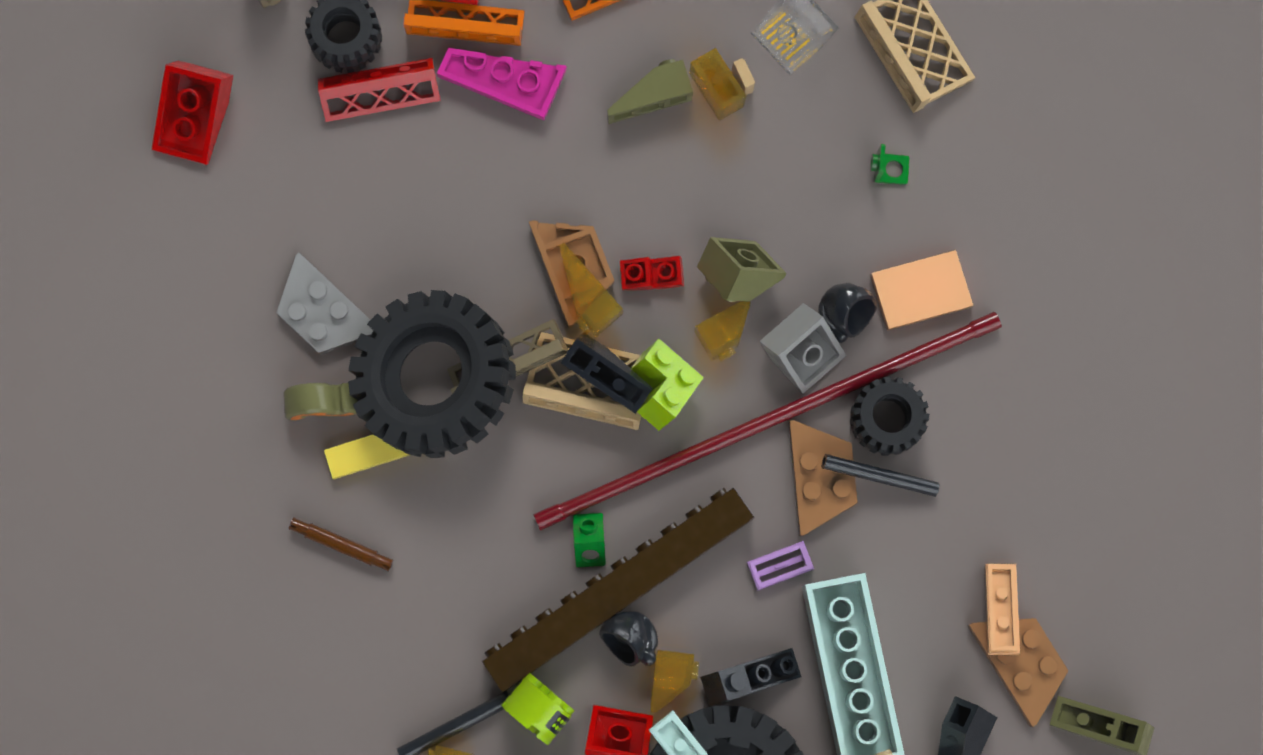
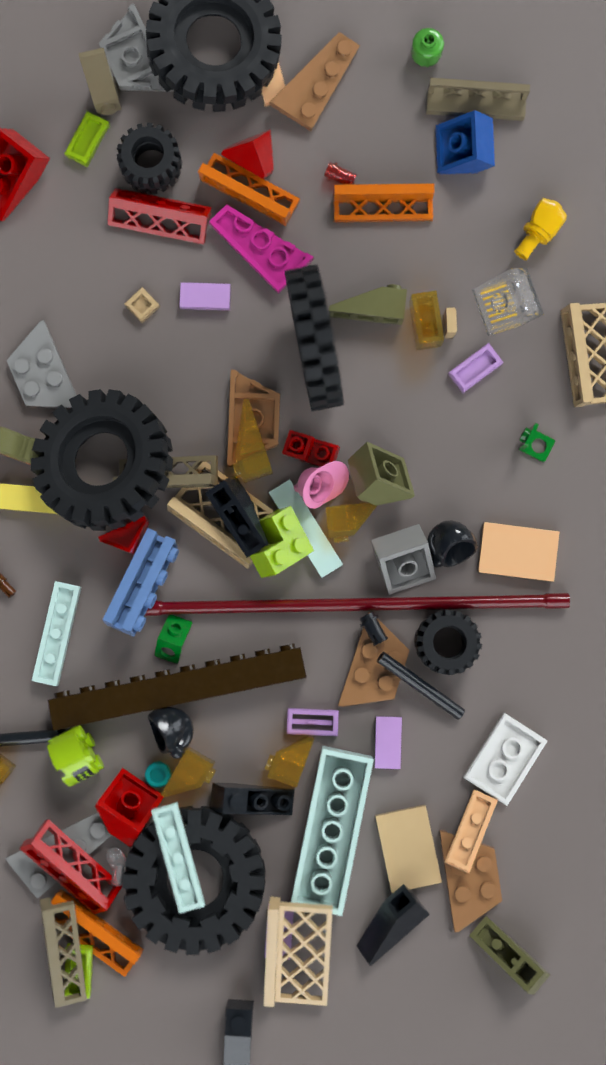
camera: 30 degrees right, 5 degrees up
(263, 39) = (87, 138): none -> lime tile
(400, 193) = (142, 305): none -> tan tile
(458, 587) = (56, 633): none -> light aqua plate
(466, 155) = (205, 296): none -> lavender tile
(492, 450) = (127, 537): none -> red slope
(530, 491) = (141, 582): none -> medium blue brick
(610, 147) = (314, 337): none -> black tyre
(636, 694) = (158, 774): none -> teal tile
(680, 303) = (322, 483): none -> bright pink piece
(716, 382) = (323, 556): none -> light aqua tile
(775, 617) = (289, 761): none -> clear yellow slope
(790, 114) = (475, 368): none -> lavender tile
(803, 434) = (373, 628): none -> black pin
(871, 552) = (388, 742): none -> lavender tile
(943, 657) = (408, 848): none -> tan tile
(1004, 517) = (505, 758): none -> white tile

